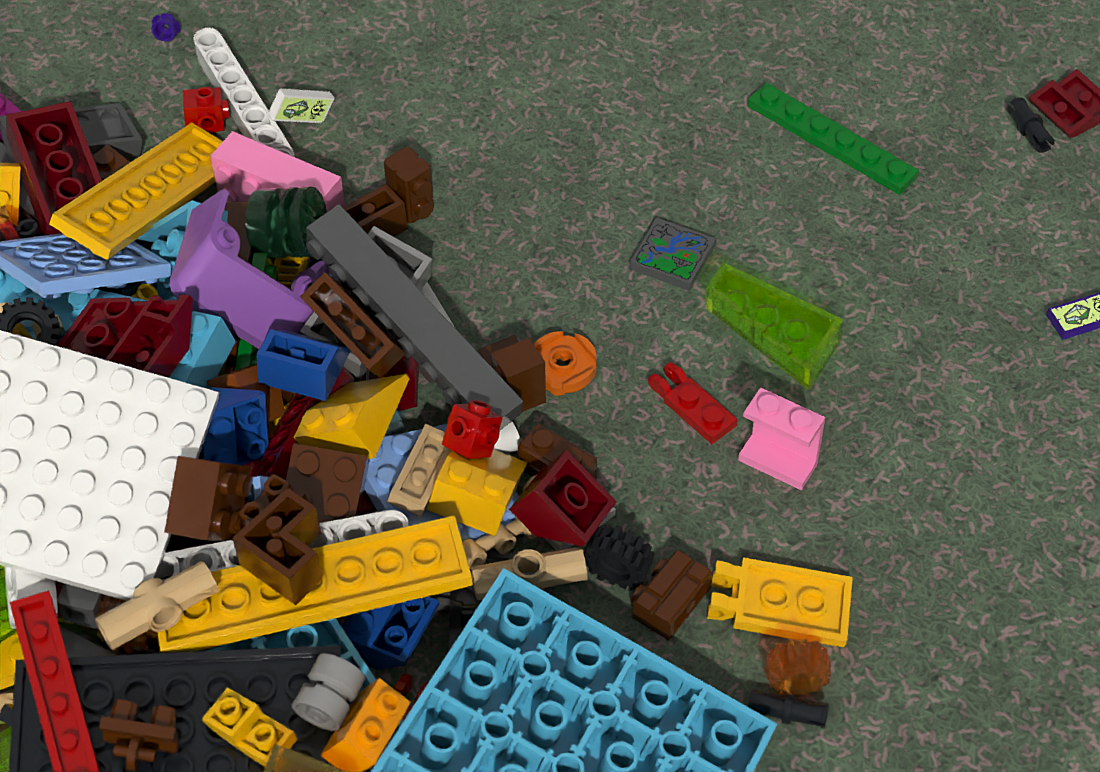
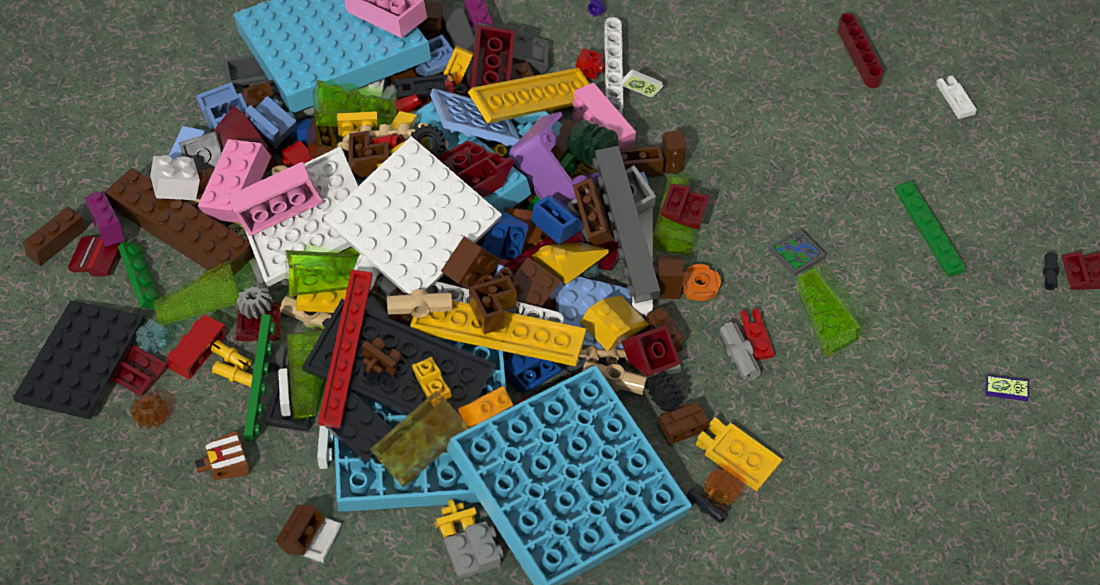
camera: 25 degrees right, 0 degrees up
(326, 697) = (478, 379): light grey wheel -> none
(420, 472) = (577, 306): tan plate -> none
(468, 283) = (670, 235): none -> clear neon green wedge
(472, 430) = (623, 292): red brick -> none
(479, 256) = (685, 206): none -> dark red slope
(686, 439) = (740, 351): none -> light grey piece
(783, 438) = (789, 375): bright pink panel -> none

